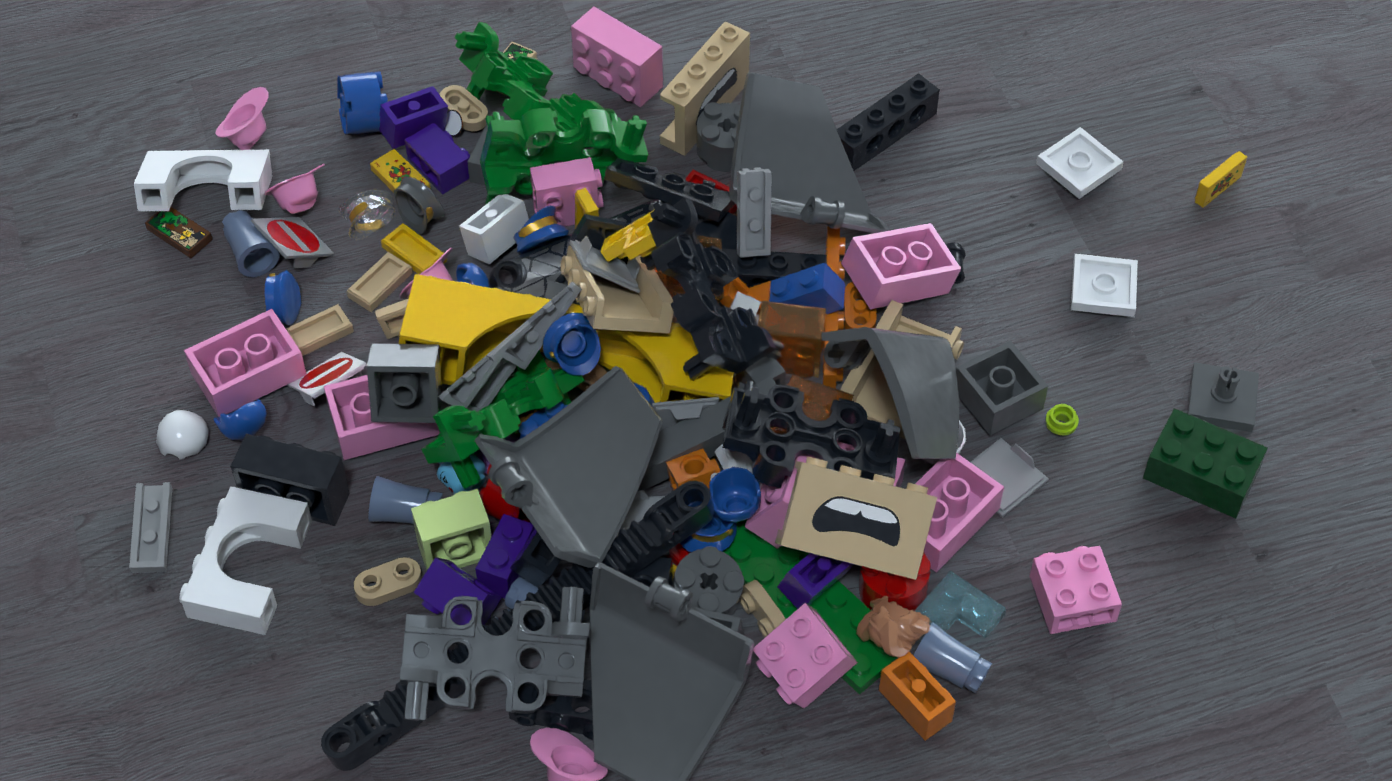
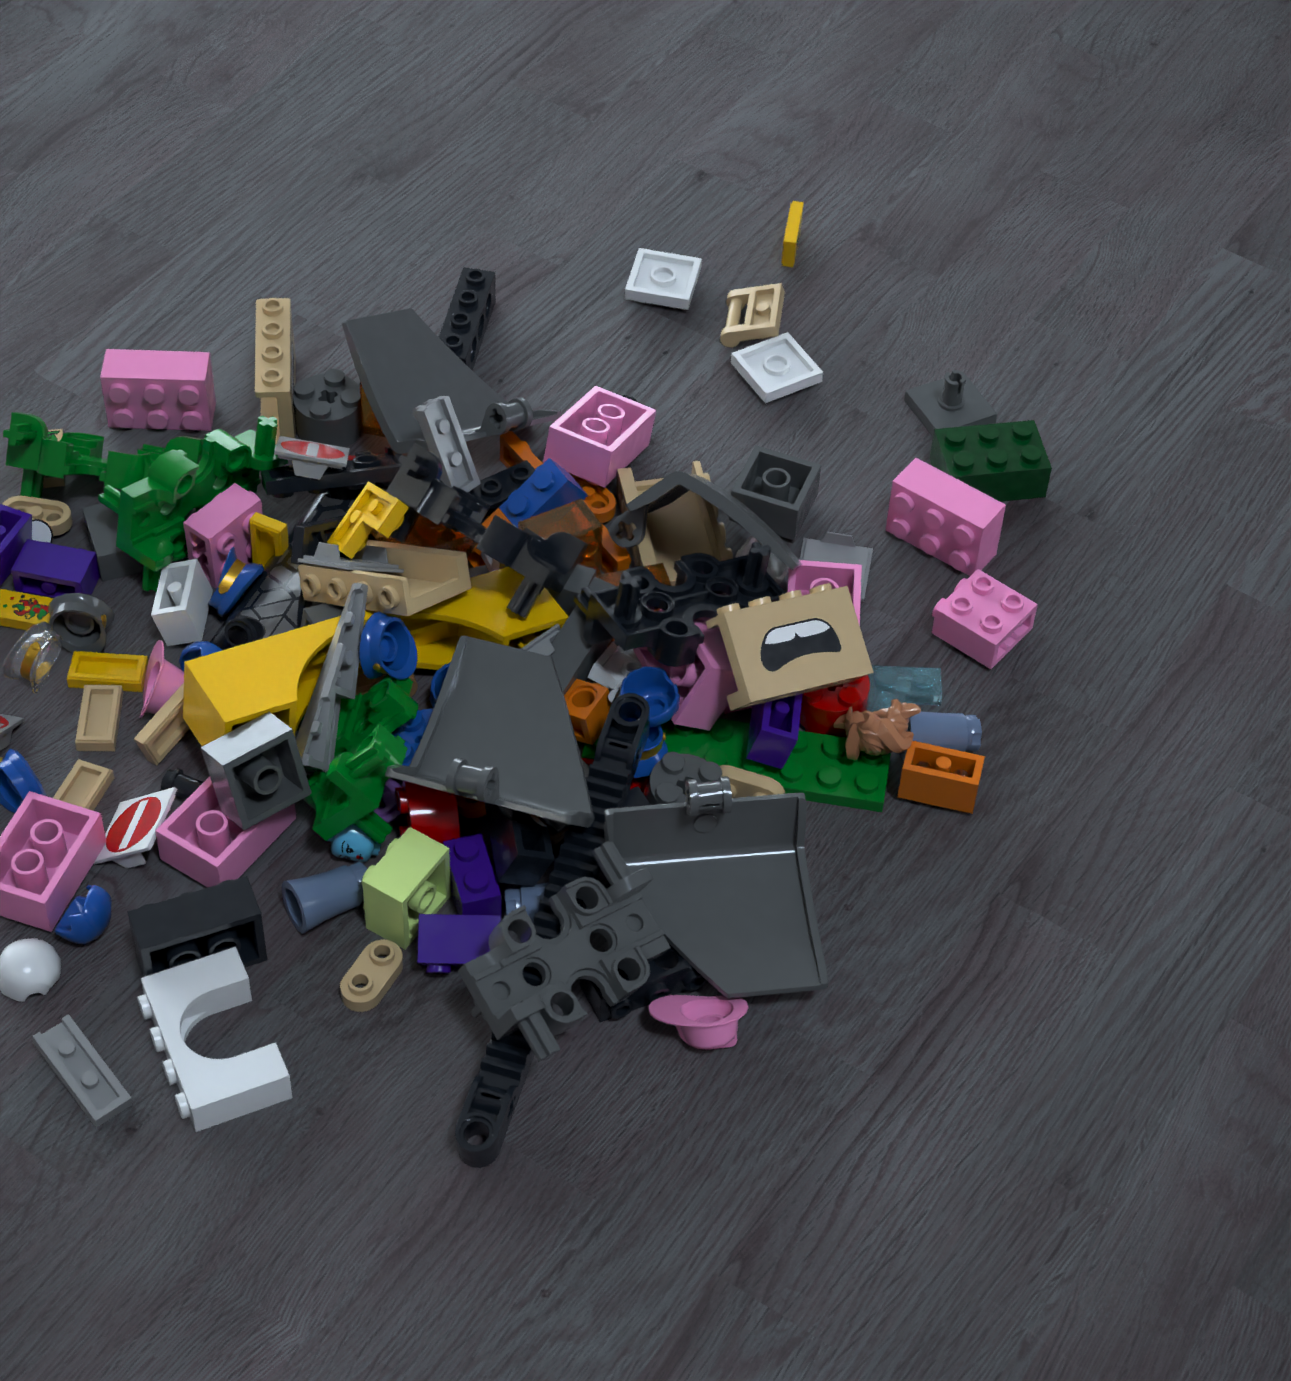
camera: 40 degrees left, 5 degrees down
(657, 163) = (309, 457): none -> light grey piece
(803, 656) = (832, 796): bright pink brick -> none
(1064, 413) = (842, 493): lime plate -> none
(1115, 487) = (944, 517): none -> bright pink brick
(1124, 230) = (761, 317): none -> tan plate

